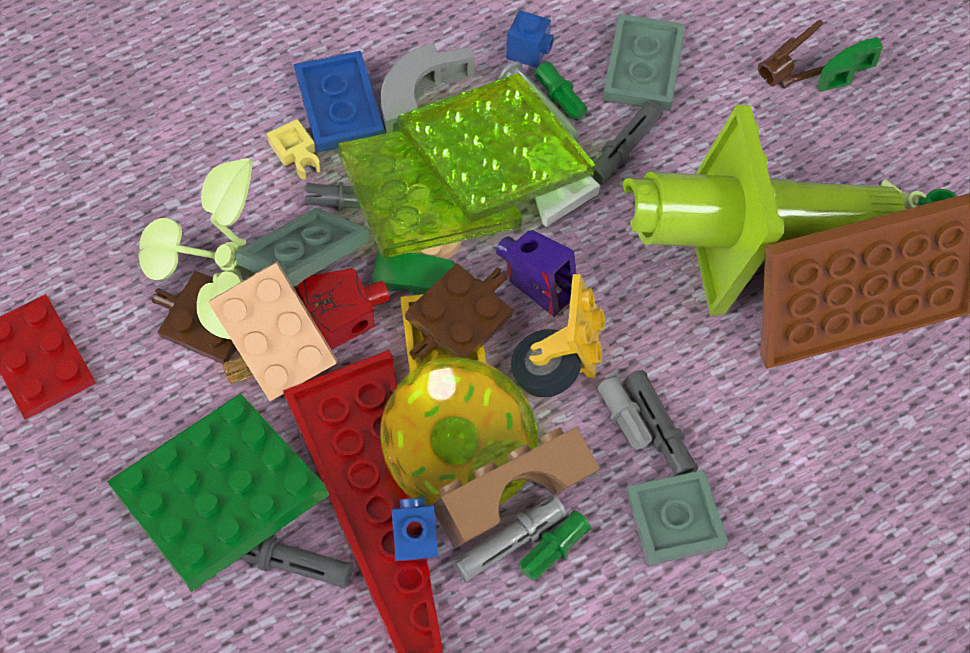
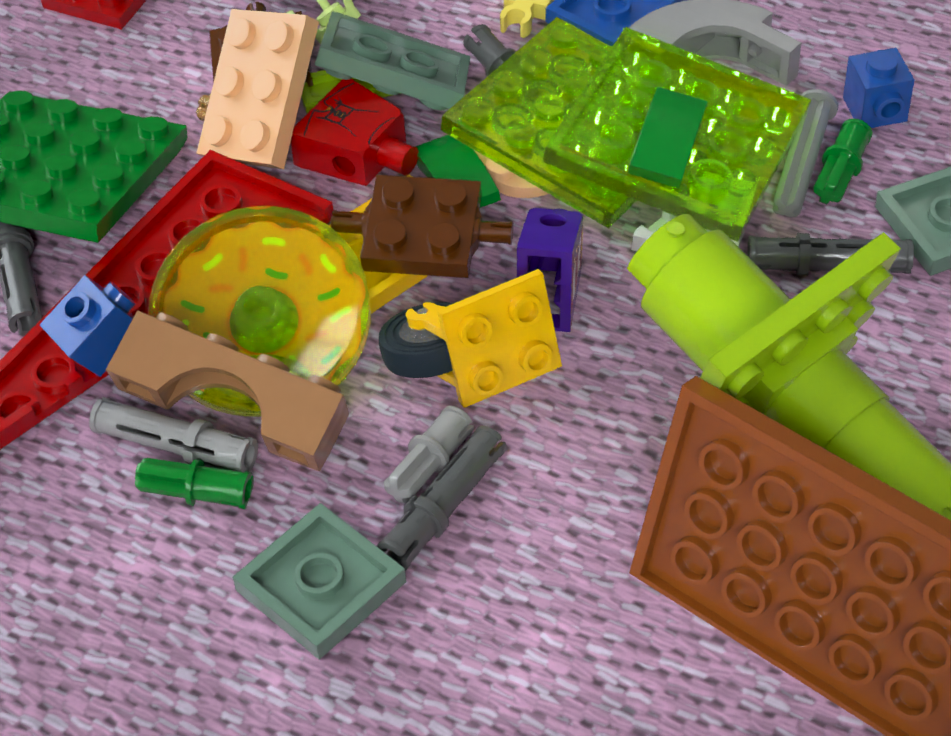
camera: 60 degrees right, 10 degrees down
(516, 150) = (667, 137): none -> green slope

